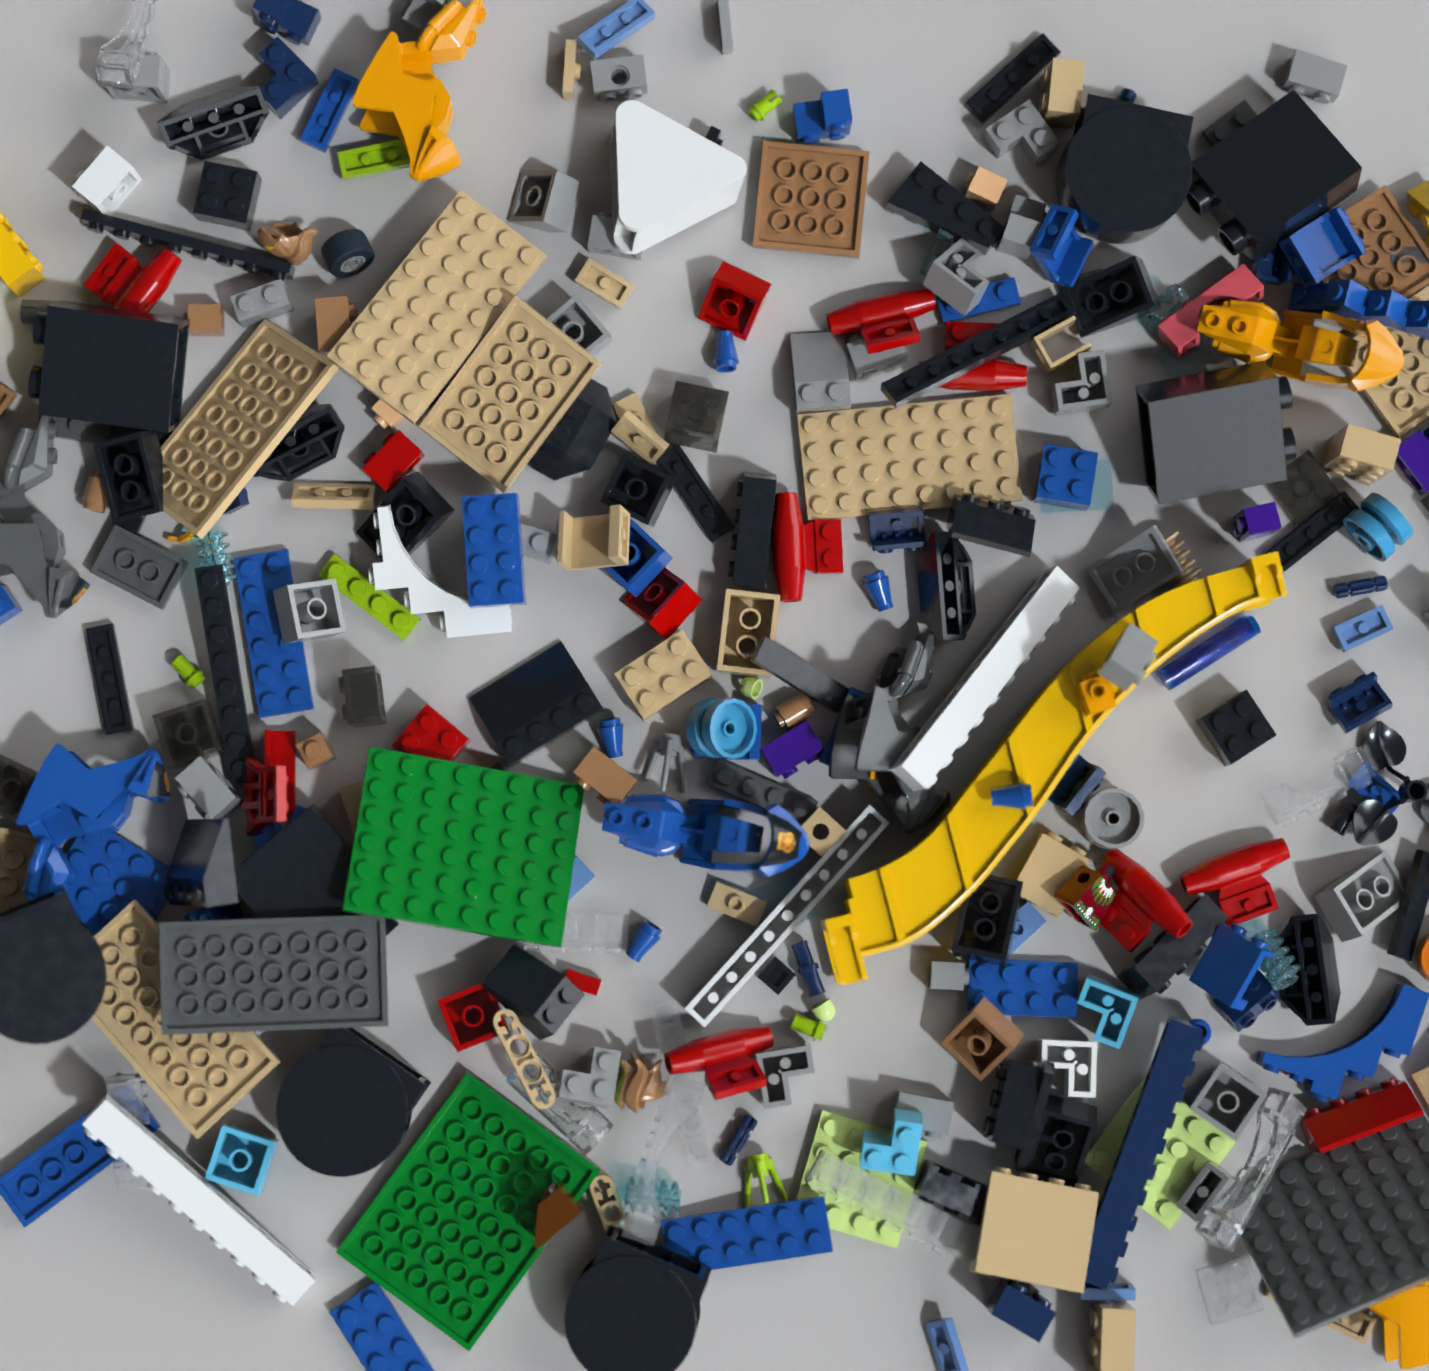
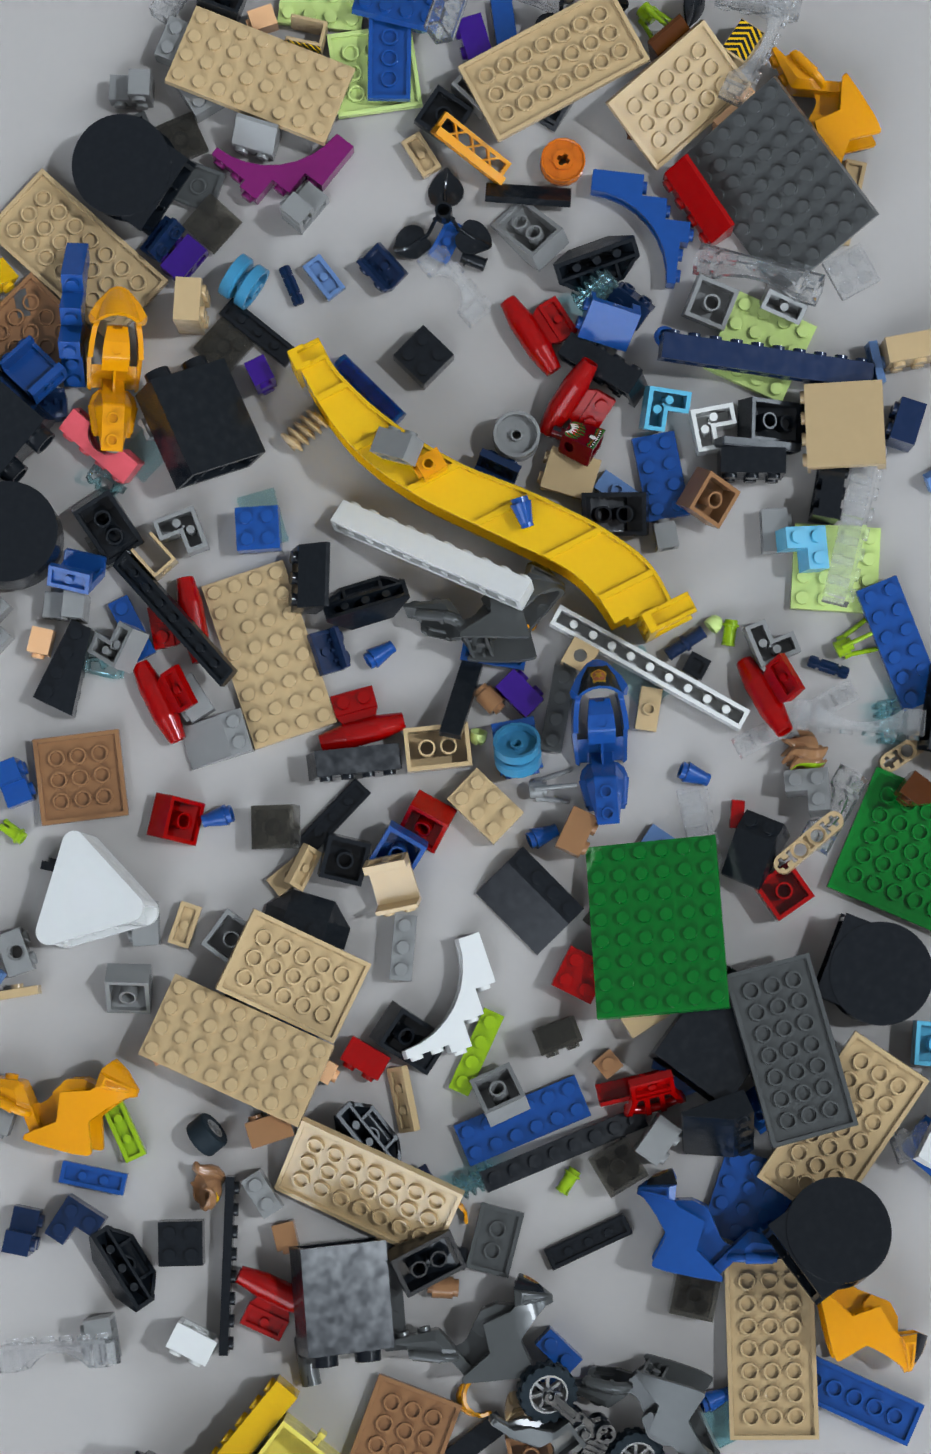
camera: 95 degrees left, 0 degrees up
(494, 550) = (420, 958): blue brick -> none
(1135, 569) = (318, 460): light grey plate -> none

